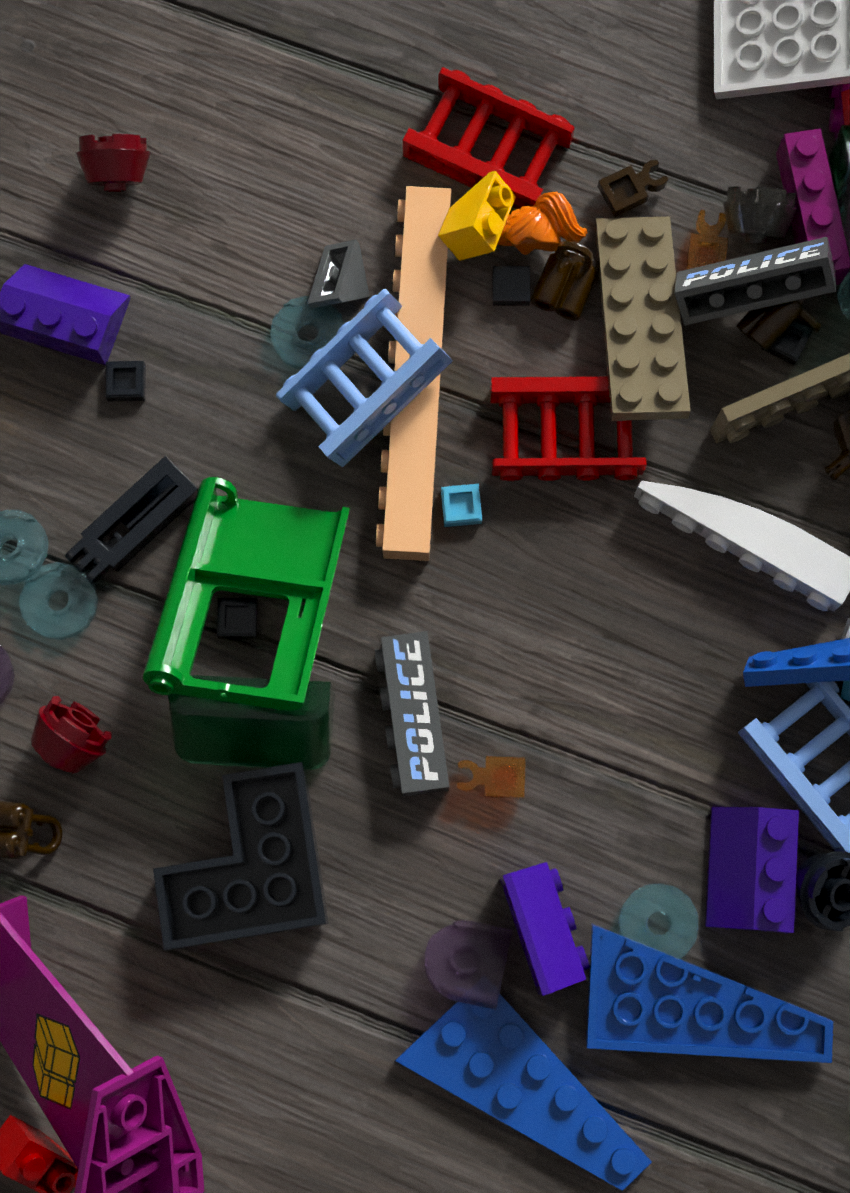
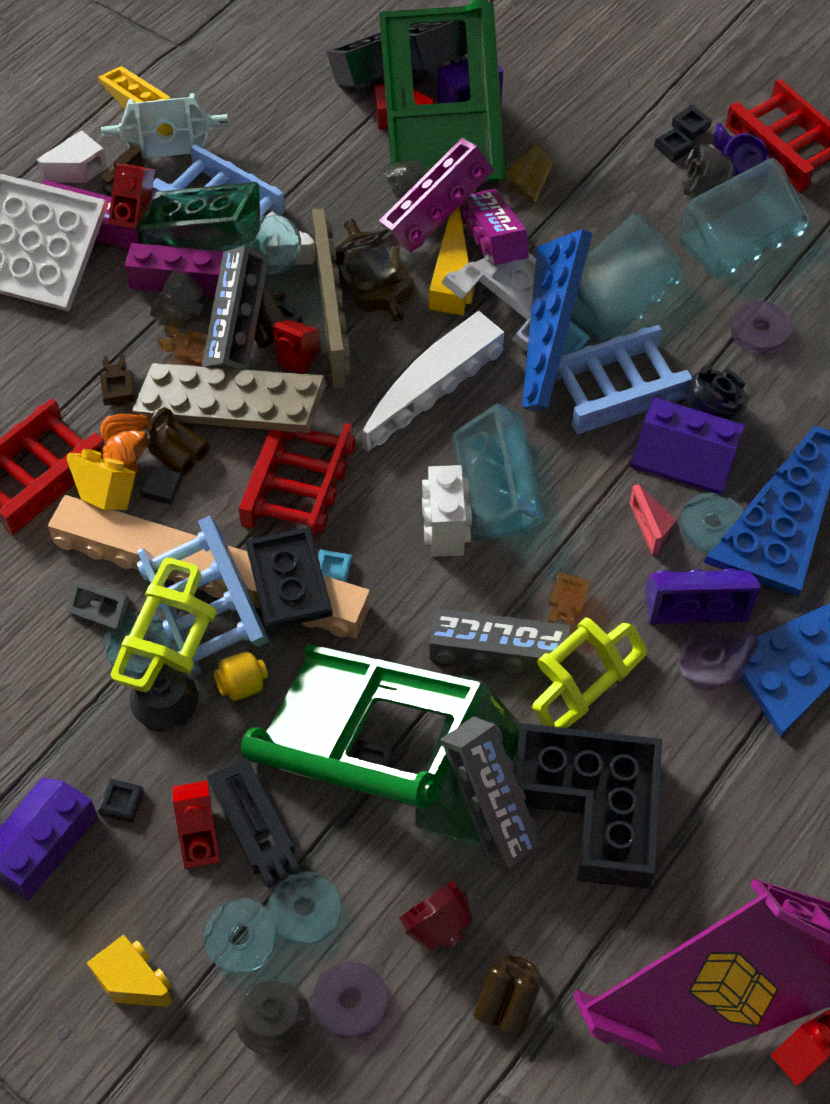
camera: 75 degrees left, 20 degrees down
(114, 461) = (195, 824): none -> red slope
(200, 750) = (491, 791): none -> dark grey brick
(247, 381) = (168, 701): none -> black cone
(291, 450) = (240, 676): none -> yellow head
(334, 358) = (161, 654): none -> neon yellow bar
(364, 821) = (564, 683): none -> neon yellow bar
(413, 460) = (288, 578): none -> black tile
(559, 606) = (446, 510): none -> white brick
(638, 853) = (652, 518): none -> coral slope
(639, 653) = (500, 474): none -> clear light blue slope
(744, 366) = (296, 345): none -> red slope

